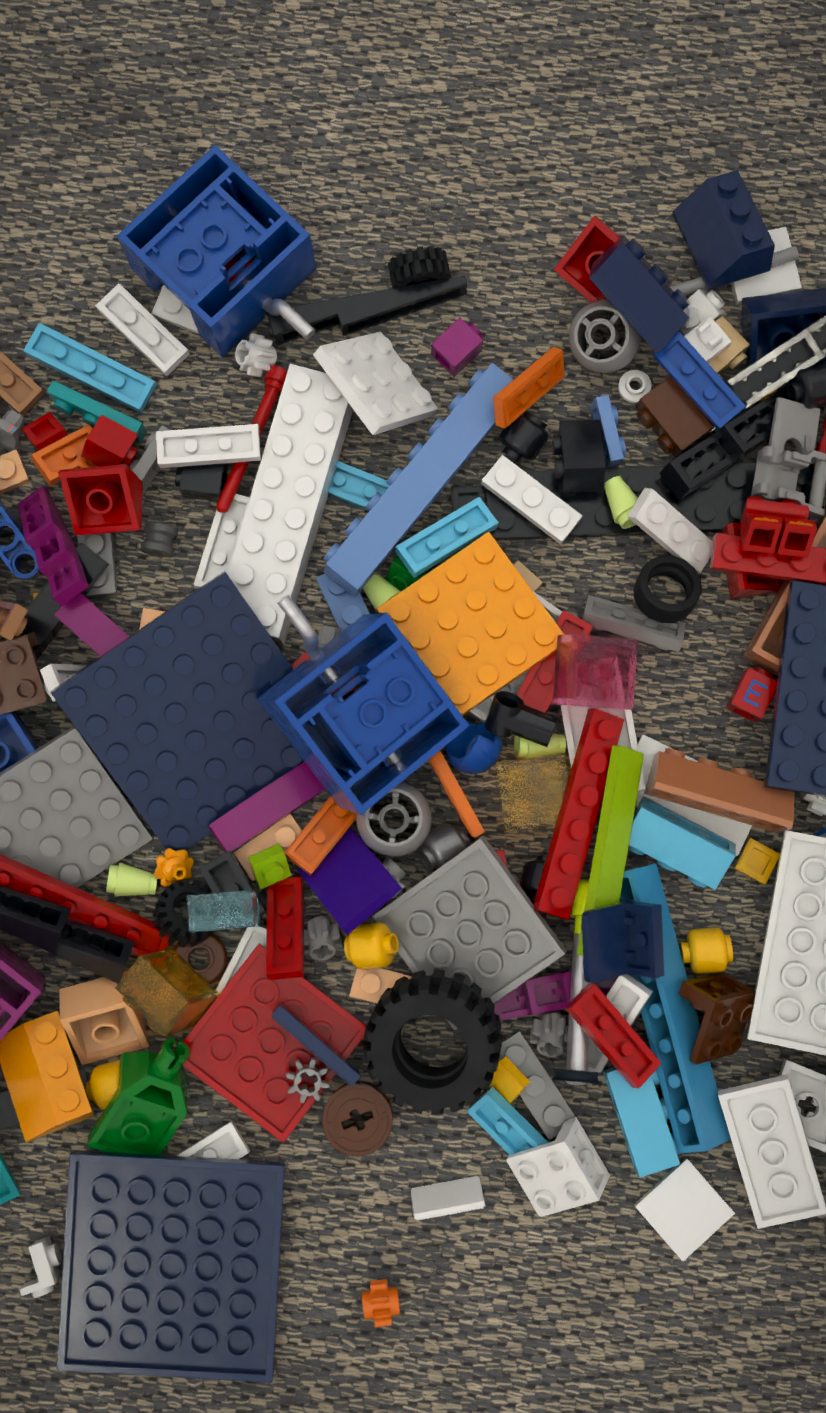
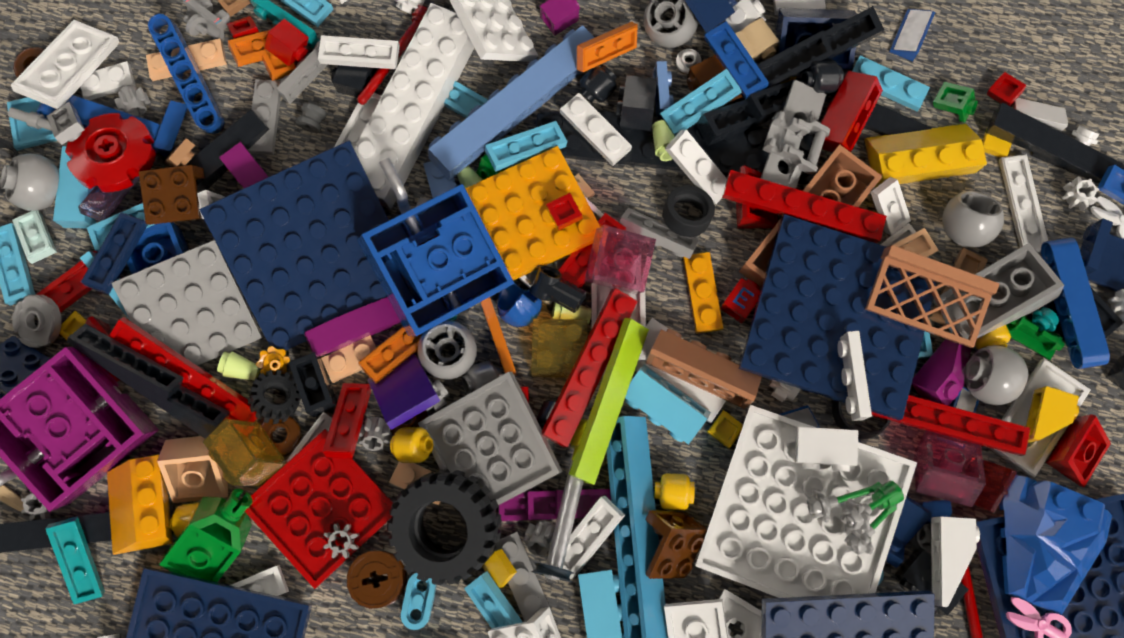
camera: 10 degrees right, 5 degrees down
(52, 545) = (229, 107): magenta slope -> none
(103, 499) = (272, 77): red slope -> none
(223, 911) = (298, 395): clear light blue hips -> none
(269, 866) = (345, 371): lime plate -> none
(315, 1044) = (352, 513): dark blue tile -> none
(413, 1134) = (417, 600): none -> medium azure plate
(514, 621) = (564, 211): none -> red plate
(613, 1035) = (587, 544): red plate -> none
(622, 941) = (605, 469): dark blue bracket -> none
(663, 445) = (700, 101): none -> medium azure plate
(701, 692) = (703, 293): none -> light orange plate
(708, 339) = (748, 31): white tile -> none
(776, 526) = (777, 169): red hips -> none

